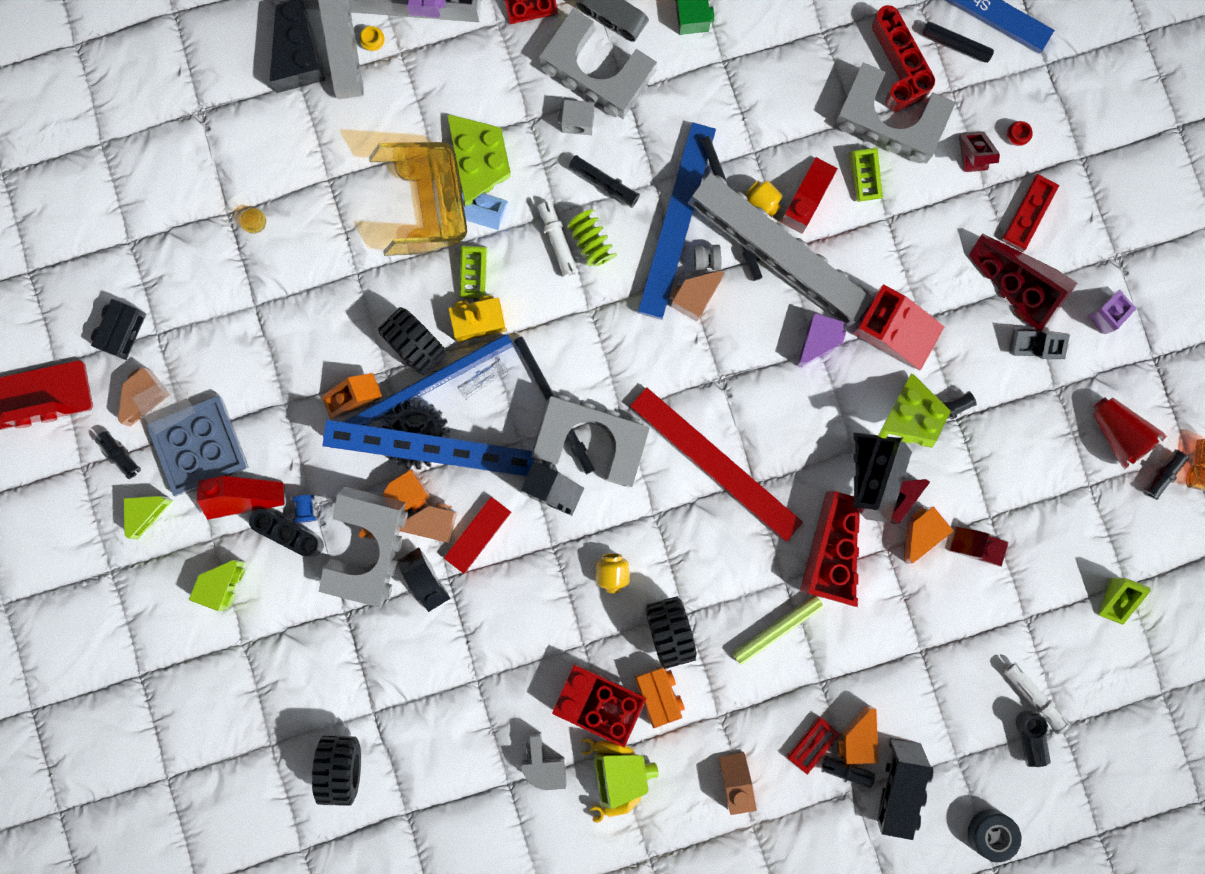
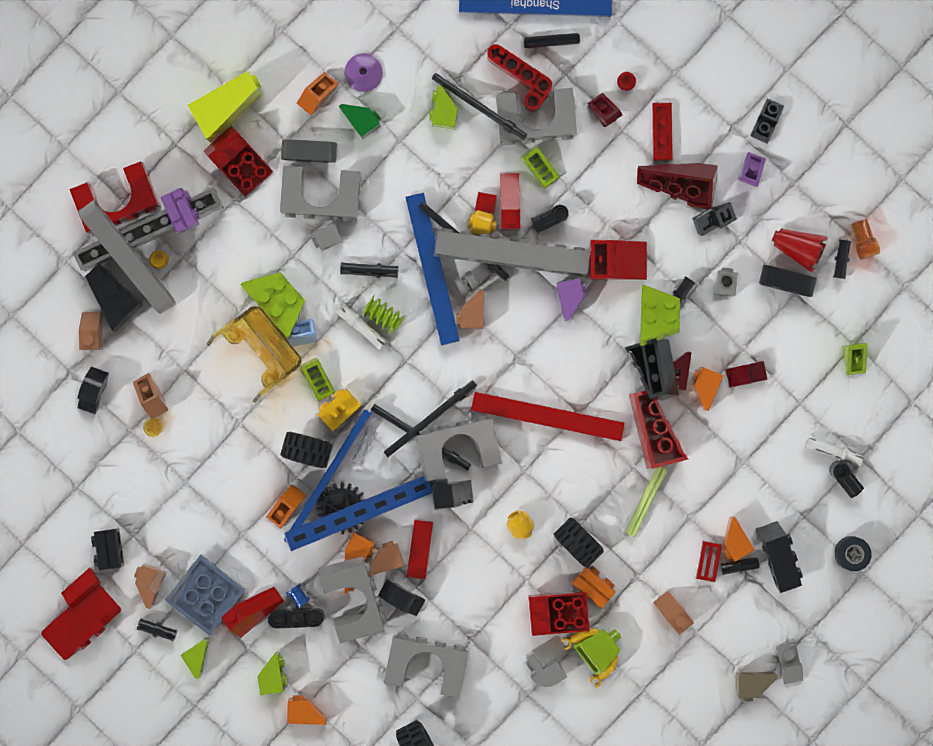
camera: 25 degrees left, 5 degrees up
(60, 356) = (80, 587): none -> red tile
(208, 135) = (92, 389): none -> black brick
(229, 650) = (304, 711): none -> orange slope
(246, 75) = (90, 331): none -> nougat slope
(270, 184) = (150, 396): none -> nougat slope
(441, 686) = (405, 648): none -> light grey arch
(626, 381) = (459, 395): none -> black bar
(782, 179) = (485, 202): none -> red tile
(792, 51) = (444, 111): none -> lime slope
(844, 237) = (547, 219): none -> black piece
(858, 101) = (508, 126): none -> black bar
(1002, 427) = (722, 290): none -> light grey brick
(1088, 464) = (787, 281): none -> black beam
(1160, 267) = (767, 120): none -> black slope

